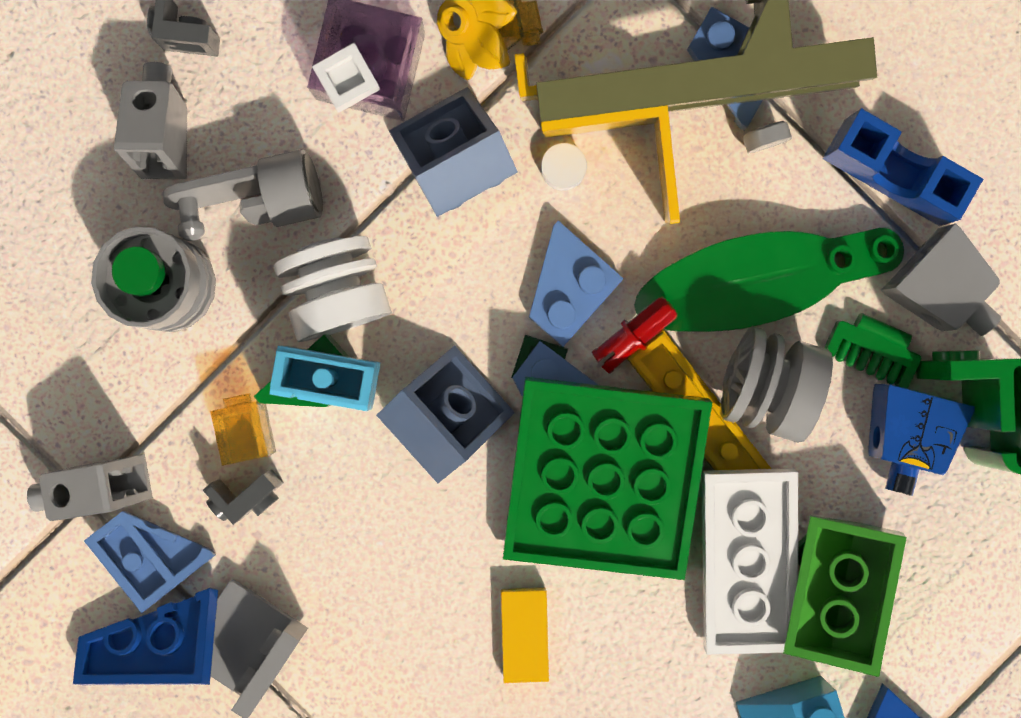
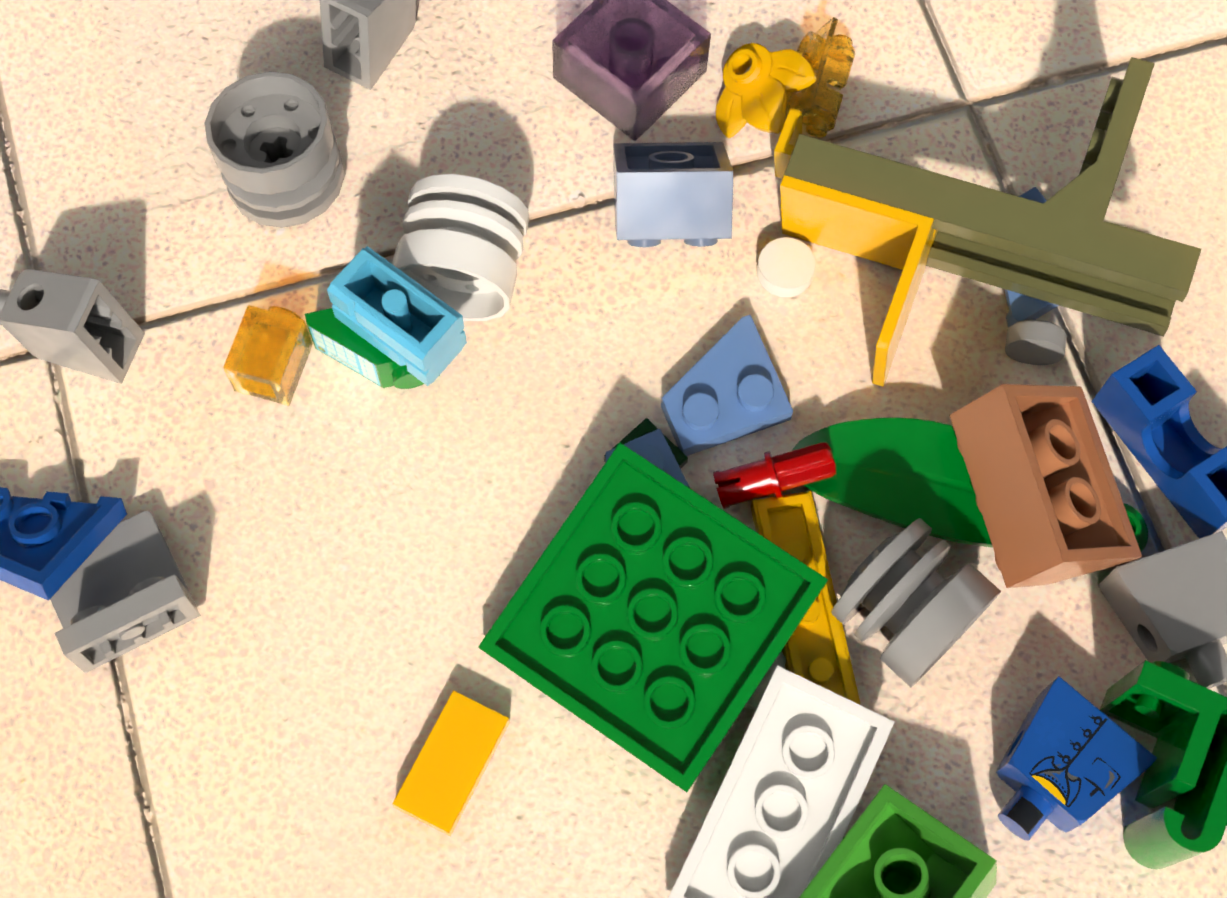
camera: 25 degrees right, 20 degrees down
(138, 271) = (266, 121): green tile -> none
(145, 557) = (72, 436): medium blue wing -> none
(255, 498) = (226, 430): dark grey bracket -> none
(286, 186) = (446, 129): light grey piece -> none
(346, 77) = (599, 42): white plate -> none
(445, 414) = (504, 450): sand blue slope -> none
(826, 257) = (1043, 484): none -> nougat slope
(879, 339) = (1066, 633): green piece -> none

